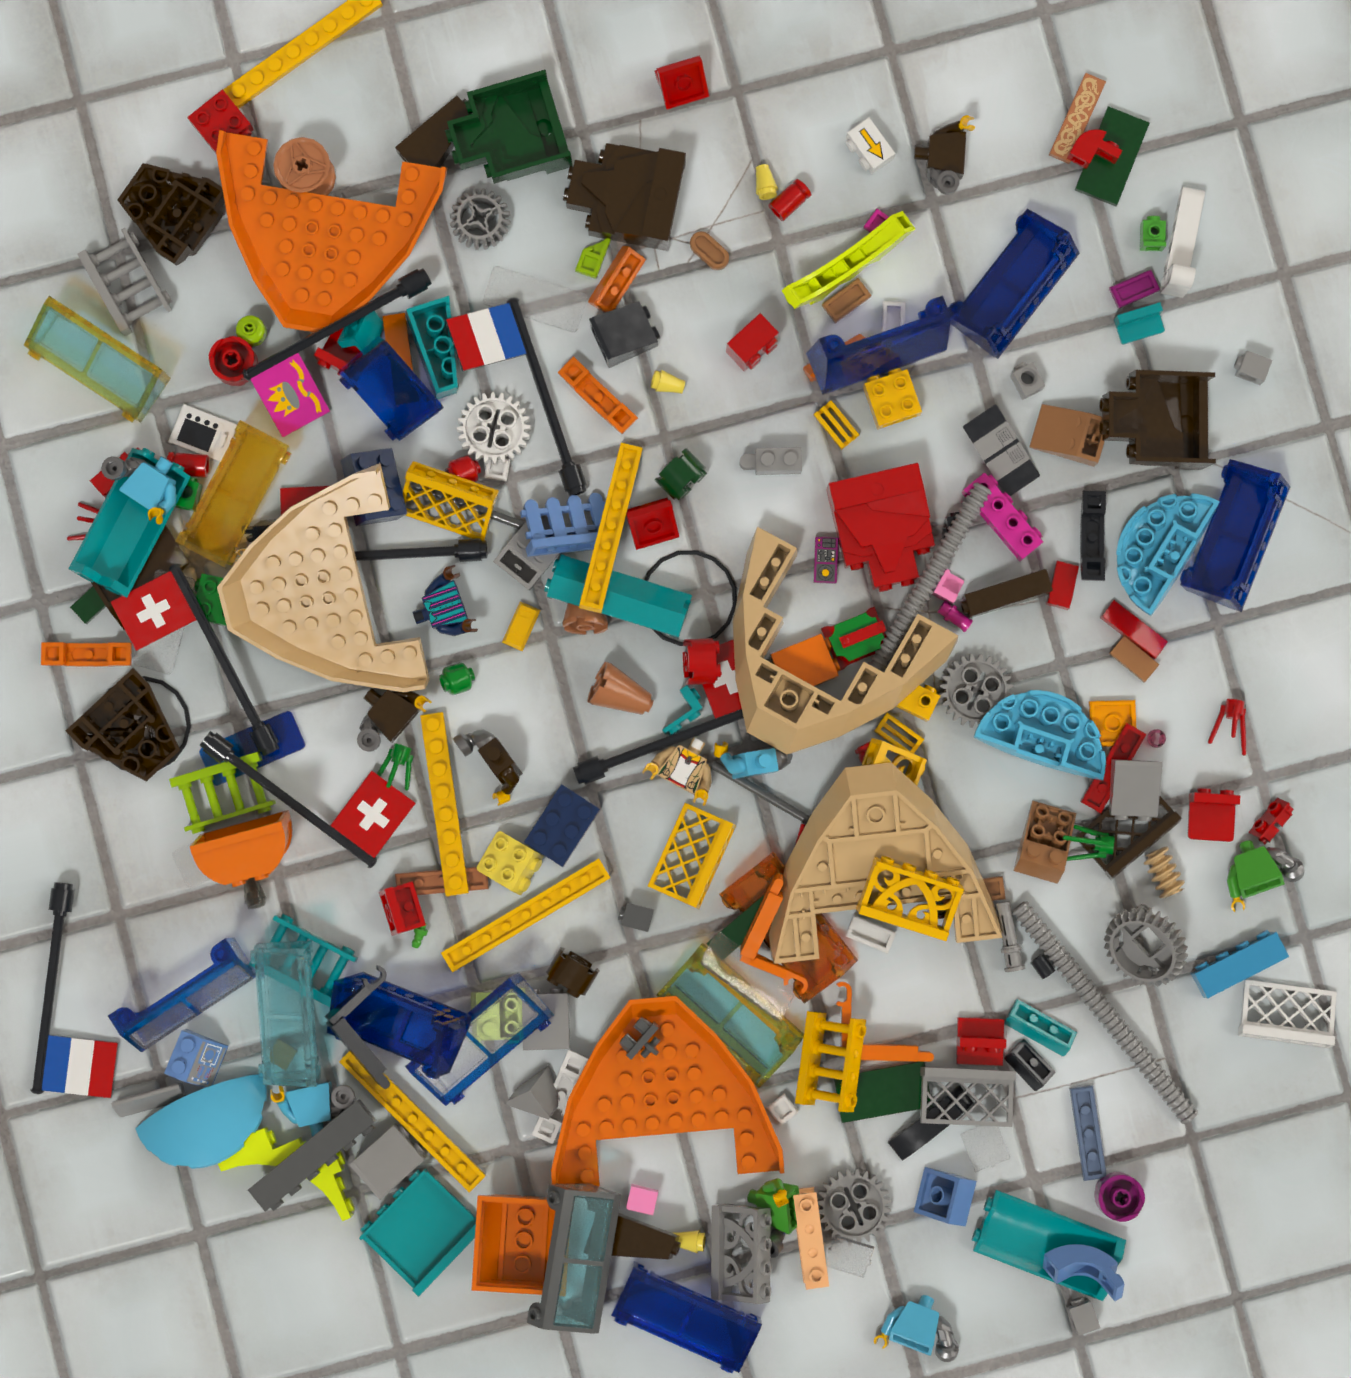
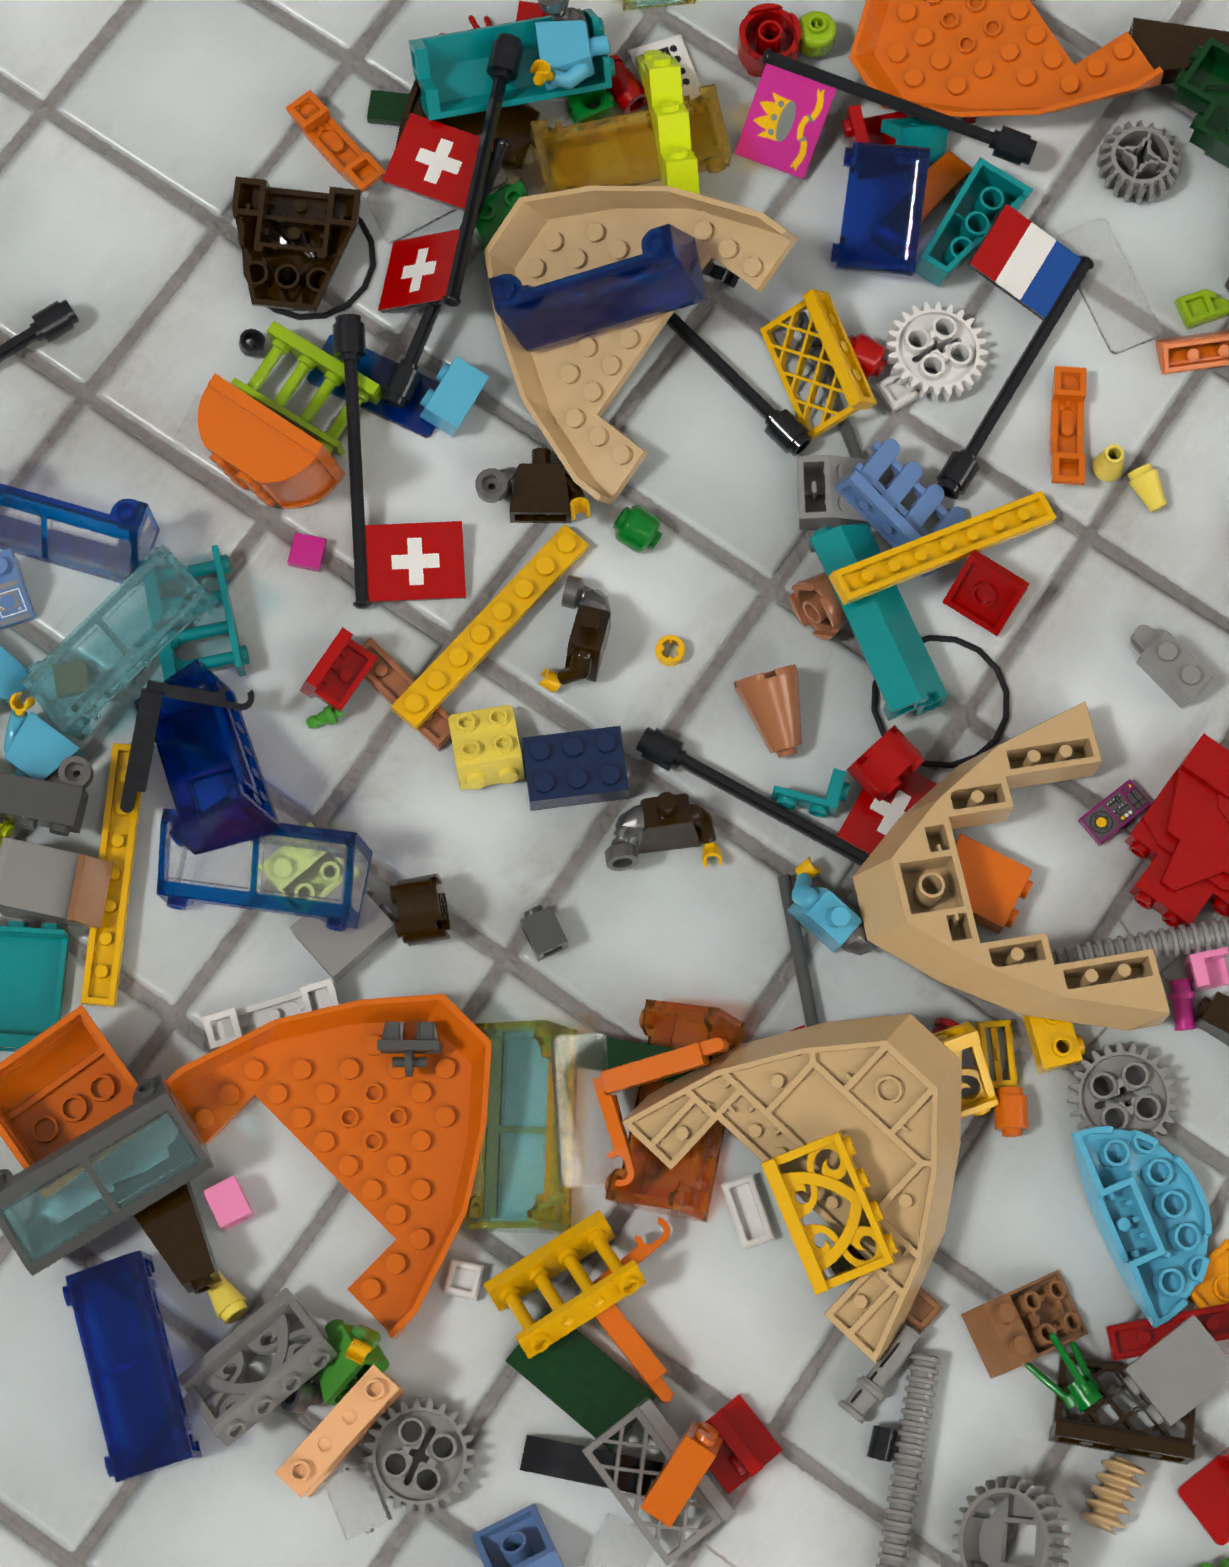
camera: 50 degrees right, 10 degrees down
(169, 795) = (257, 342): none -> black hinge
(212, 665) = (433, 266): none -> flag
(243, 465) = (669, 118): none -> neon yellow arch
(254, 894) = (223, 509): clear smoke cone -> none
(295, 715) = (453, 396): none -> medium azure brick
(316, 868) = (307, 552): none -> dark pink tile
(340, 551) = (606, 296): none -> clear blue windscreen
(359, 461) = (761, 310): dark blue brick -> none
(399, 755) = (502, 537): green plant -> none
(414, 1140) = (89, 891): none -> medium nougat tile
(444, 606) = (704, 452): torso -> none
(521, 626) = (752, 552): yellow tile -> none
(525, 915) = (443, 811): yellow plate -> none
(534, 723) = (671, 639): none -> yellow bush
(536, 1095) = (251, 987): light grey slope -> none
(624, 333) = (1159, 397): black slope -> none
(632, 808) = (661, 825): none -> dark brown torso
(636, 398) = (1109, 463): none -> light yellow cone
(681, 474) = (1066, 577): dark green brick -> none
(684, 768) = (751, 845): torso -> none
(710, 862) = (678, 961): yellow fence -> none
(855, 637) = (1062, 911): piece -> none
(936, 755) = (1012, 1111): none -> orange brick
(976, 1083) = (682, 1472): none -> orange brick
(1029, 1065) = (755, 1527): black slope -> none
(1040, 1028) = (809, 1503): teal slope -> none

